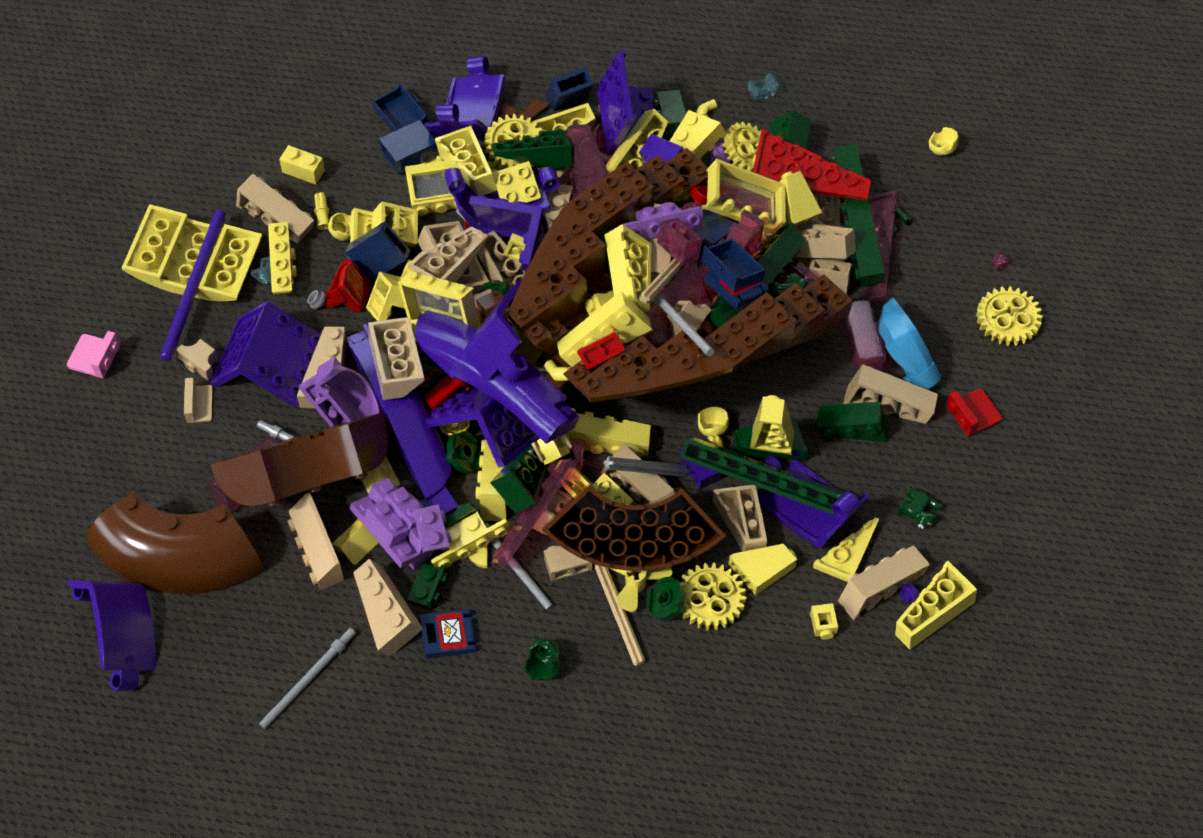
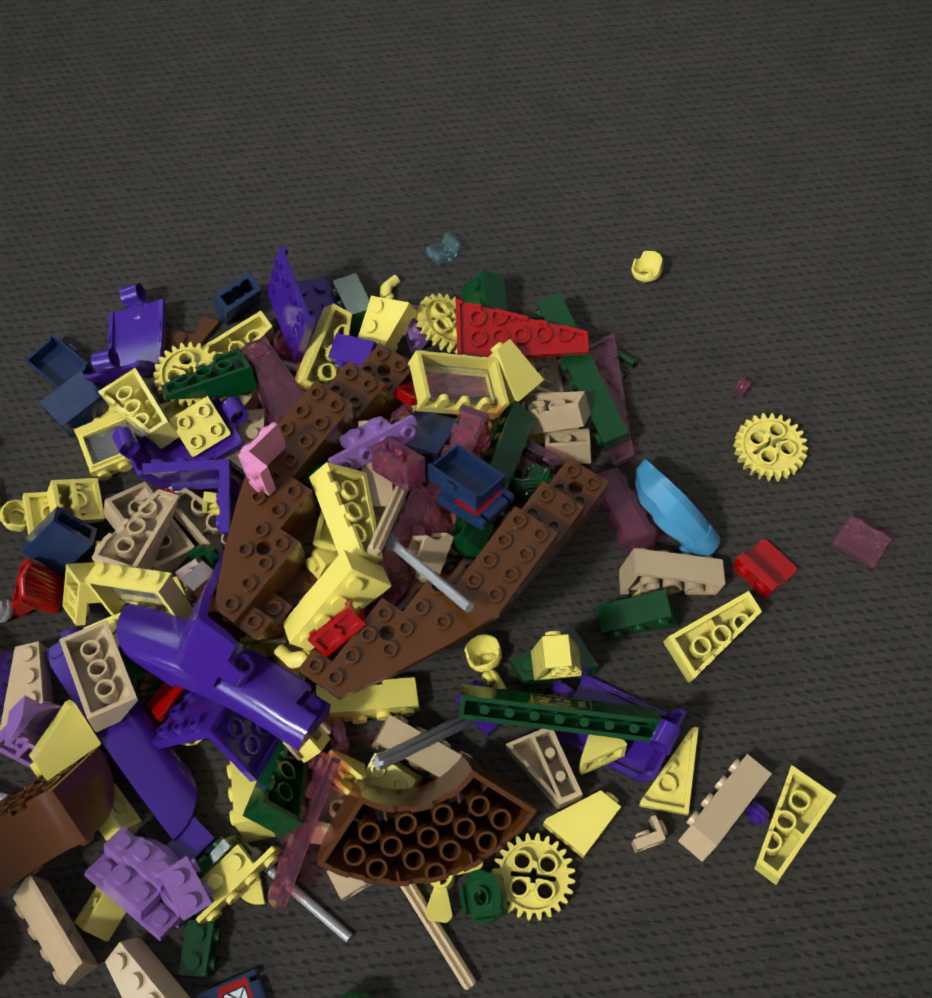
camera: 10 degrees left, 5 degrees up
(356, 400) = (63, 742): none -> light yellow slope
(455, 454) = (196, 769): dark green plate -> none
(571, 204) = (259, 454): none -> bright pink bracket
(604, 286) = (323, 536): none -> light yellow tile
(791, 515) = (601, 751): none -> light yellow slope
(812, 591) = (646, 839): none -> tan bracket
(824, 614) = (674, 866): light yellow brick -> none
(906, 451) = (704, 639): none -> light yellow wedge
(917, 506) = (735, 701): dark green animal -> none
(1065, 409) = (861, 541): none -> clear pink bracket

